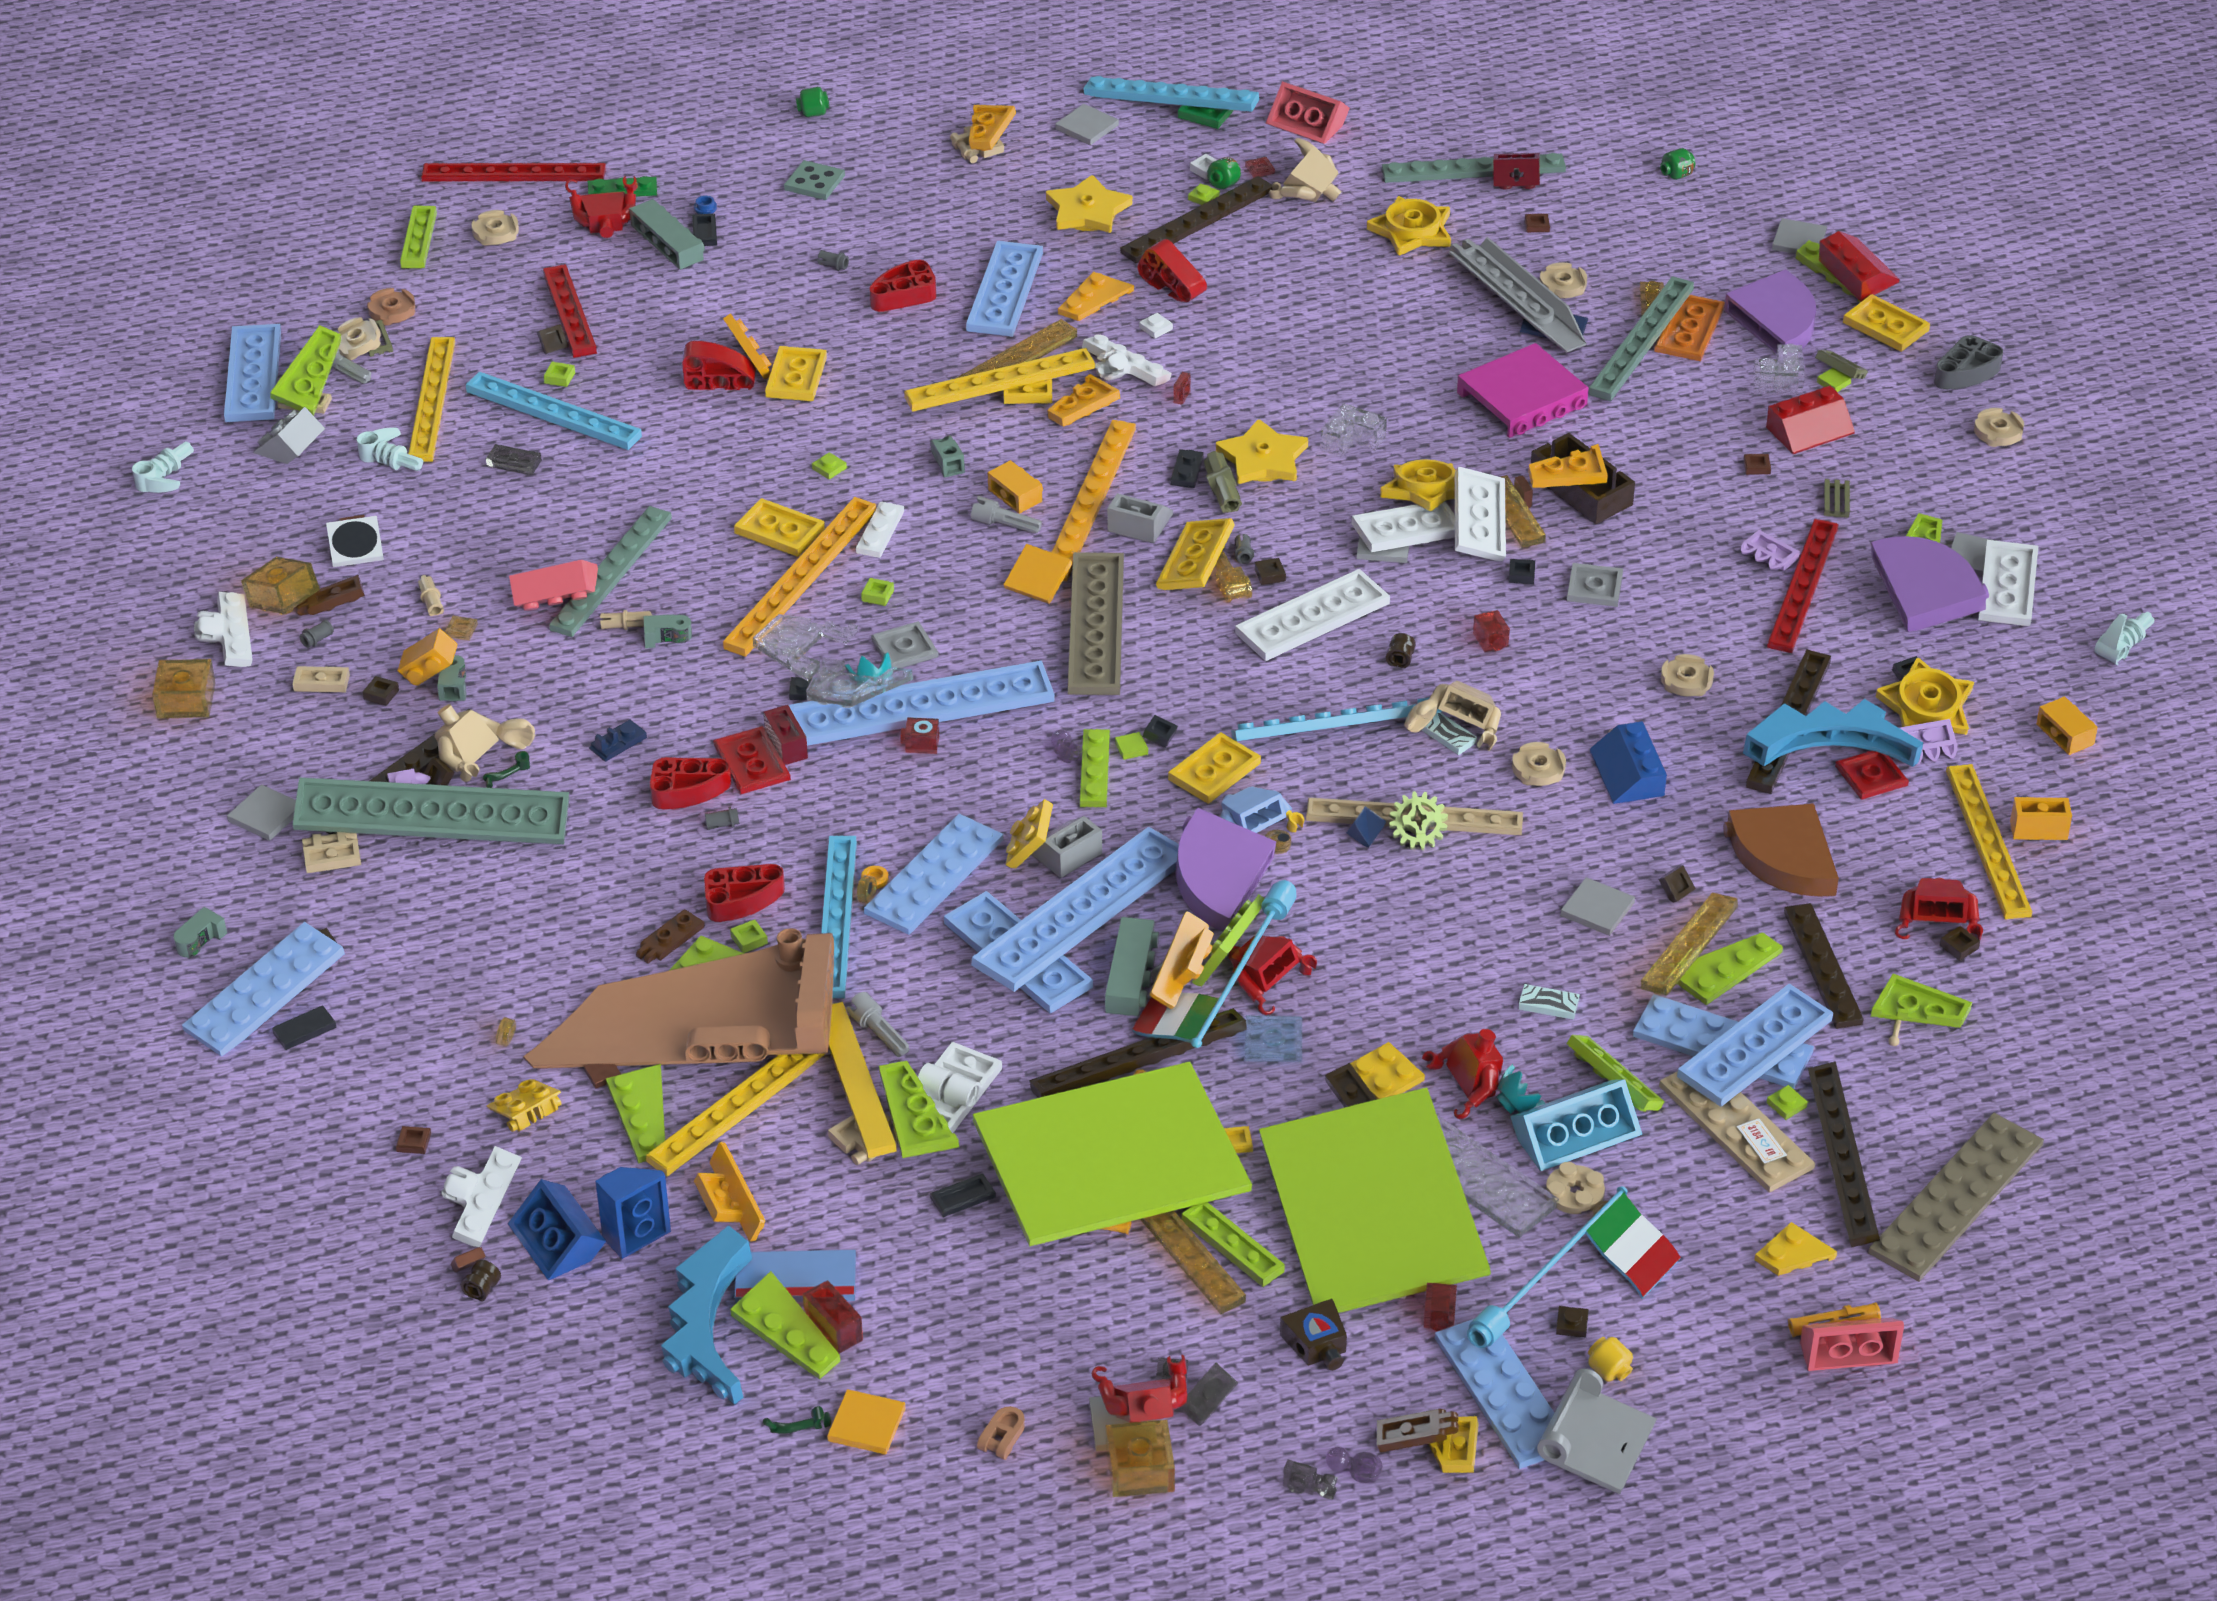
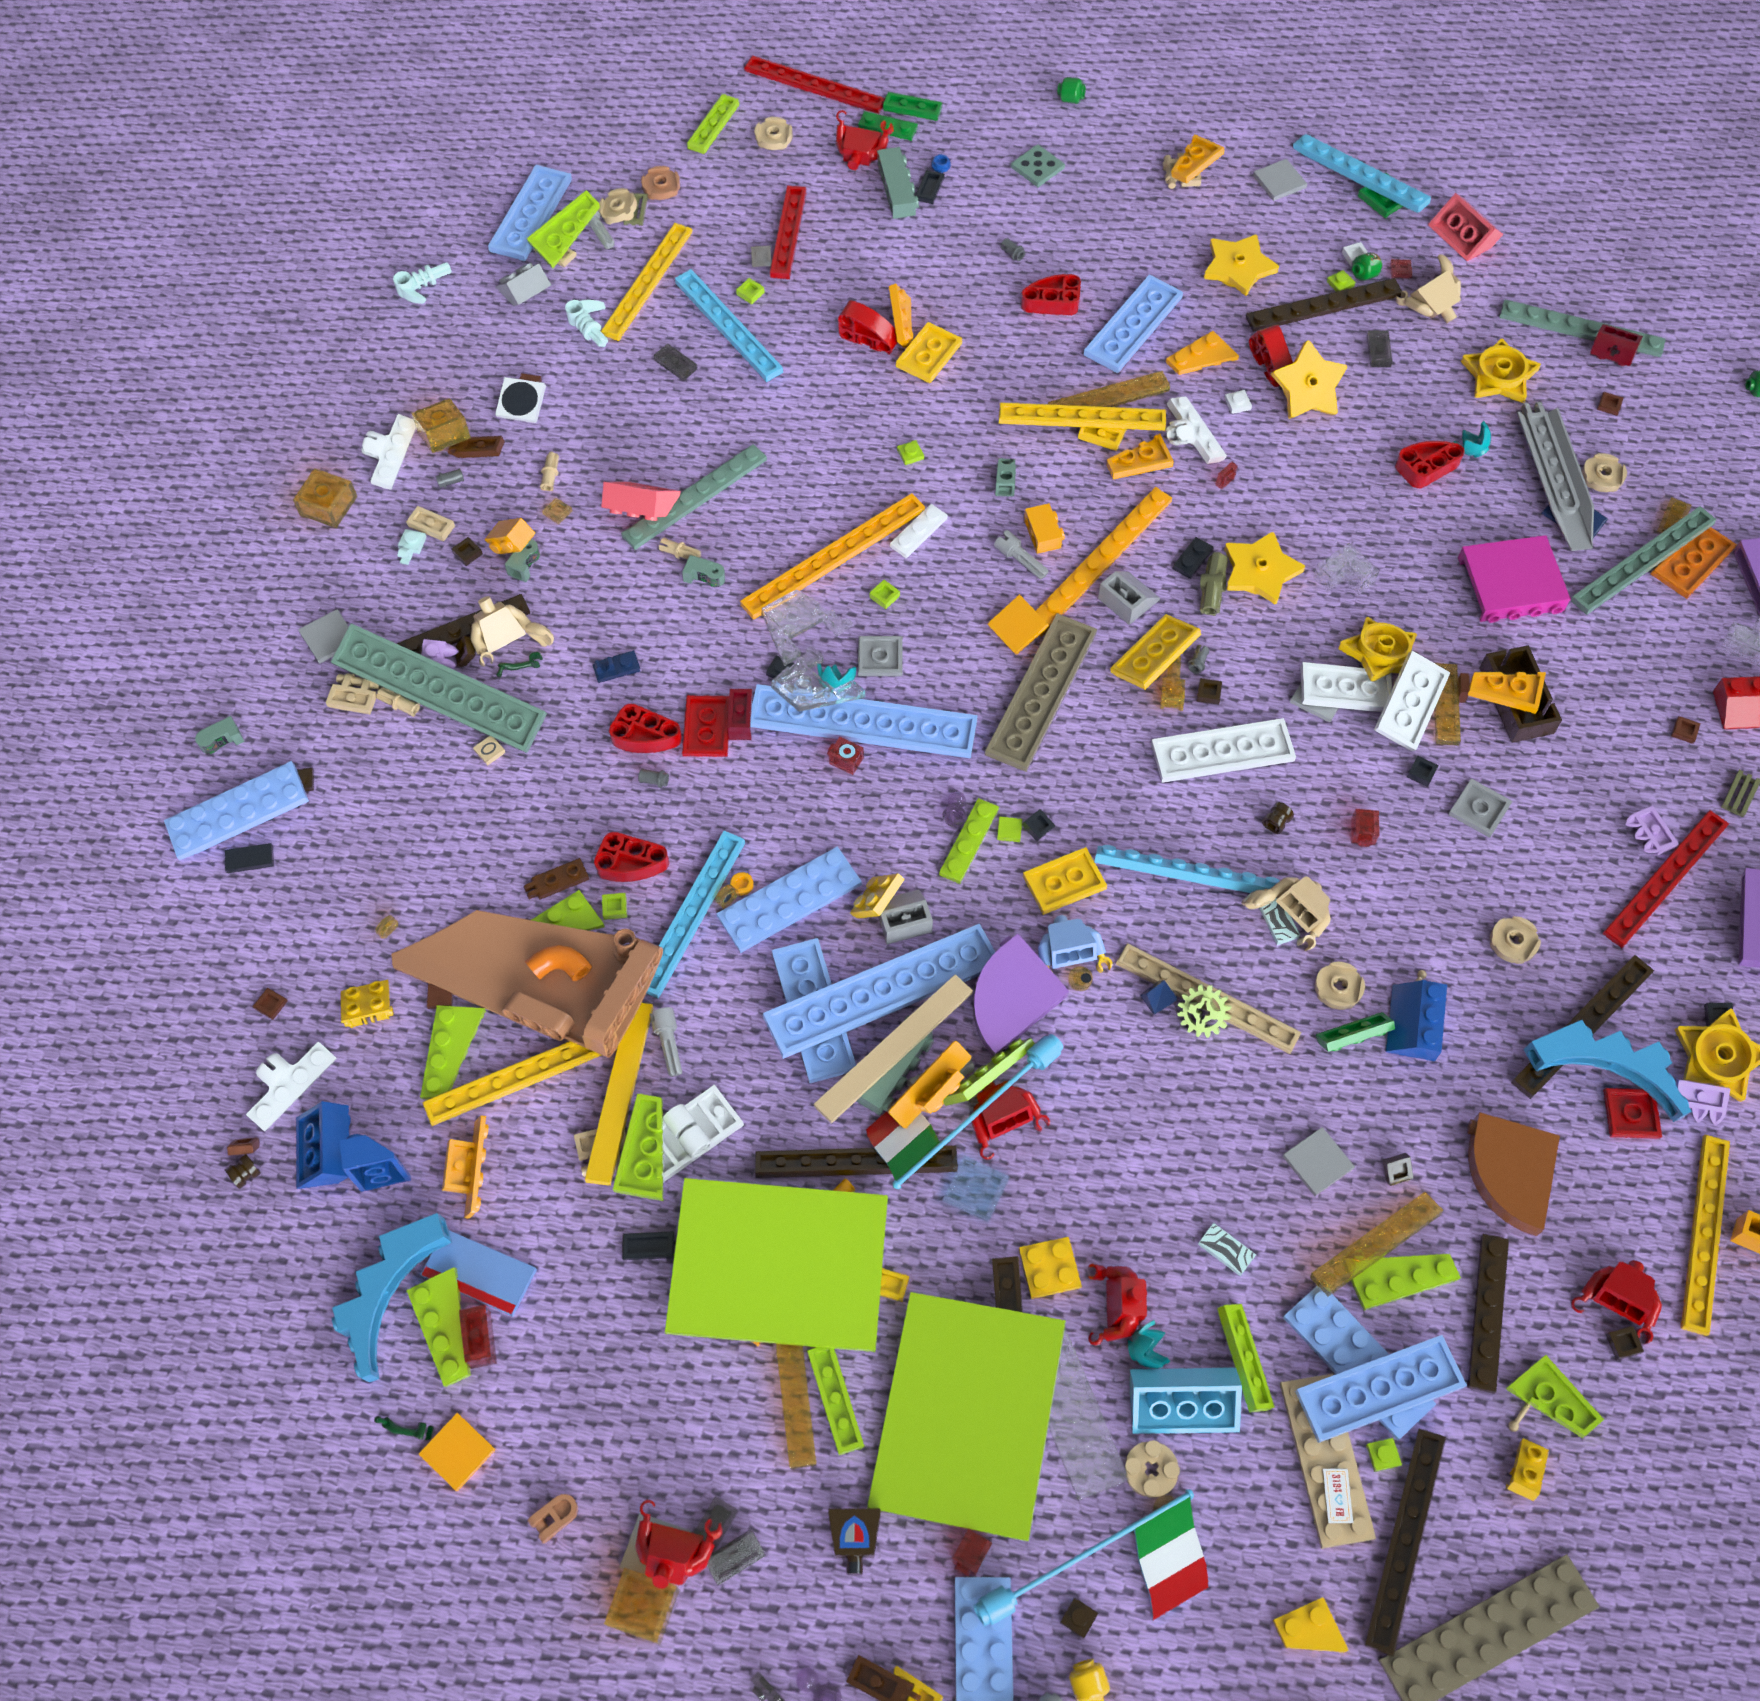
camera: 25 degrees right, 20 degrees up
(307, 704) = (410, 543): none -> light aqua plate
(387, 842) = (398, 701): none -> tan axle
(520, 853) = (489, 750): none -> tan tile
(640, 162) = (912, 106): none -> green plate
(721, 987) = (561, 958): none -> orange cylinder
(779, 527) = (841, 501): yellow plate -> none
(1124, 945) = (892, 1049): none -> tan tile
(1224, 283) = (1307, 369): none -> yellow plate
(1277, 240) = (1379, 348): none -> clear smoke plate
(1382, 319) = (1428, 461): none -> red beam
(1421, 293) = (1474, 444): none -> teal piece
(1575, 794) = (1355, 1032): none -> green plate
(1925, 1065) = (1528, 1470): none -> yellow plate

